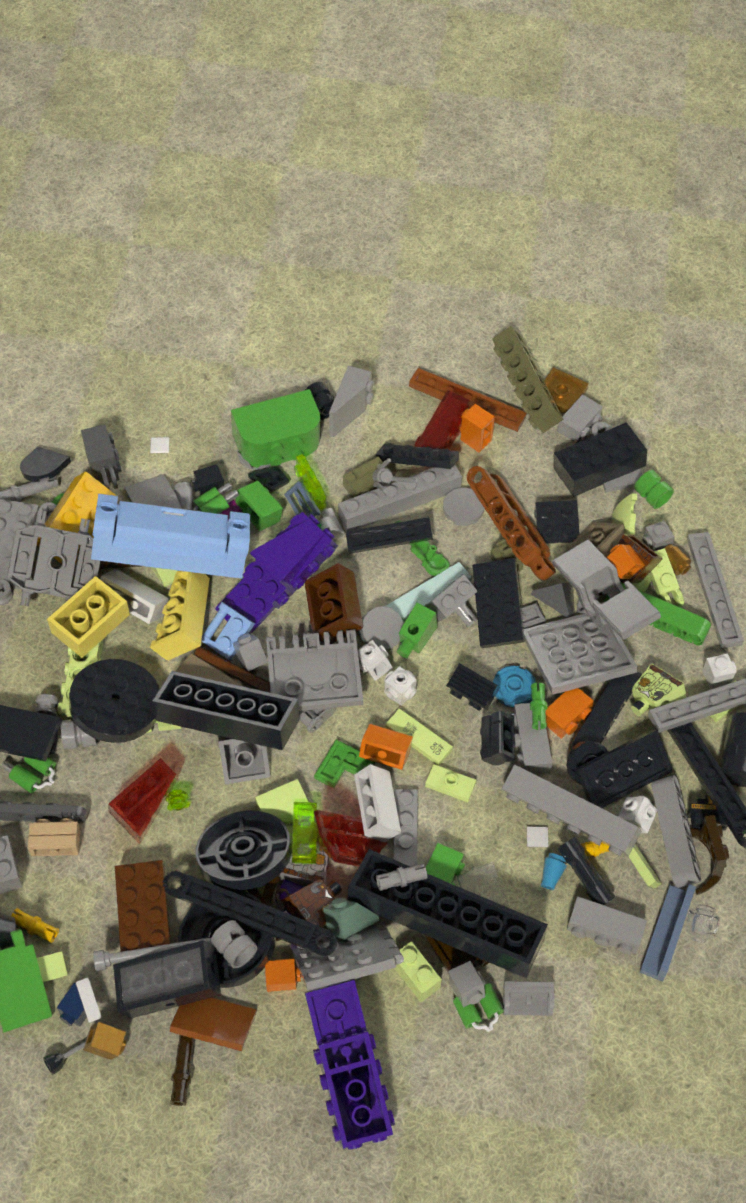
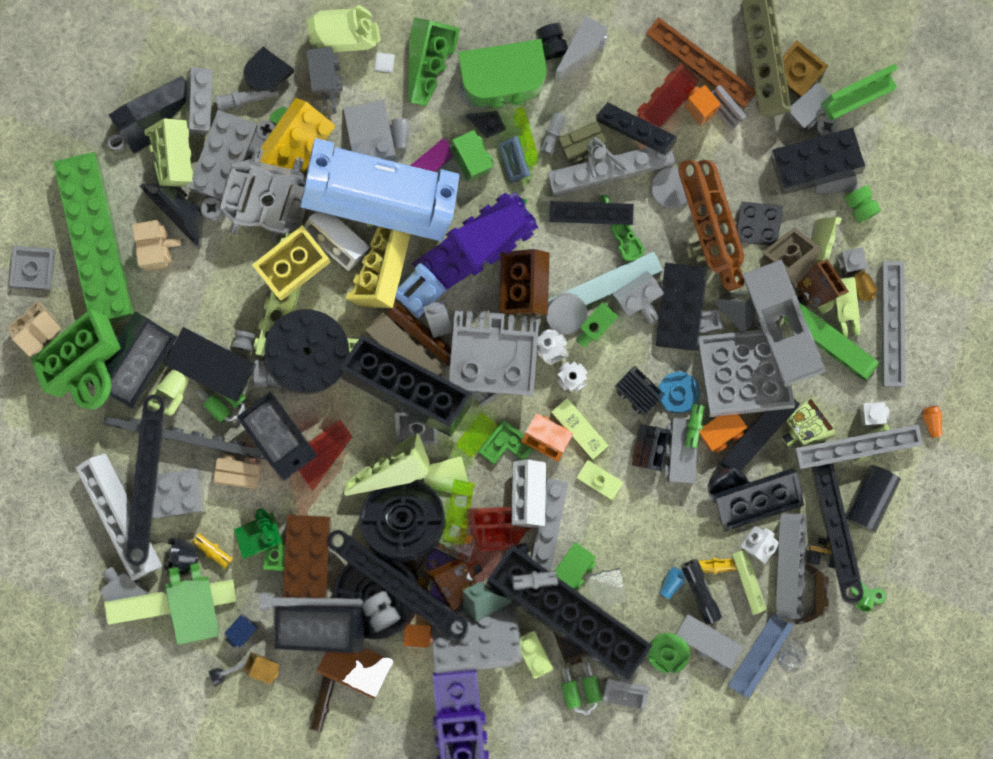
camera: 10 degrees right, 25 degrees up
(88, 1000) = (251, 632): white sticker -> none
(90, 893) = (258, 534): none -> green hinge
(94, 783) = (277, 436): none -> brick
(106, 925) = (275, 564): none -> bright green brick
(118, 415) = (343, 29): none -> yellowish green brick
(177, 800) = (351, 455): clear neon green plate -> none
(202, 424) = (428, 50): none -> bright green wedge
(207, 478) = (425, 118): black brick -> none
(213, 501) = (425, 145): bright green piece -> none
(236, 796) = (399, 468): none -> yellowish green wedge
(309, 759) = (476, 435): none -> clear neon green plate
(331, 523) = (537, 192): white piece -> none
(336, 477) = (552, 133): none -> light grey axle
(466, 984) = (574, 678): light grey brick -> none
(510, 446) = (724, 109): none -> light grey tile
(537, 836) = (667, 545): white piece -> none
(566, 944) = (669, 653): none -> bright green tile
(571, 810) = (700, 533): light grey brick -> none
(624, 396) = (859, 93): none -> bright green fence
(625, 561) = (810, 291): orange brick -> none

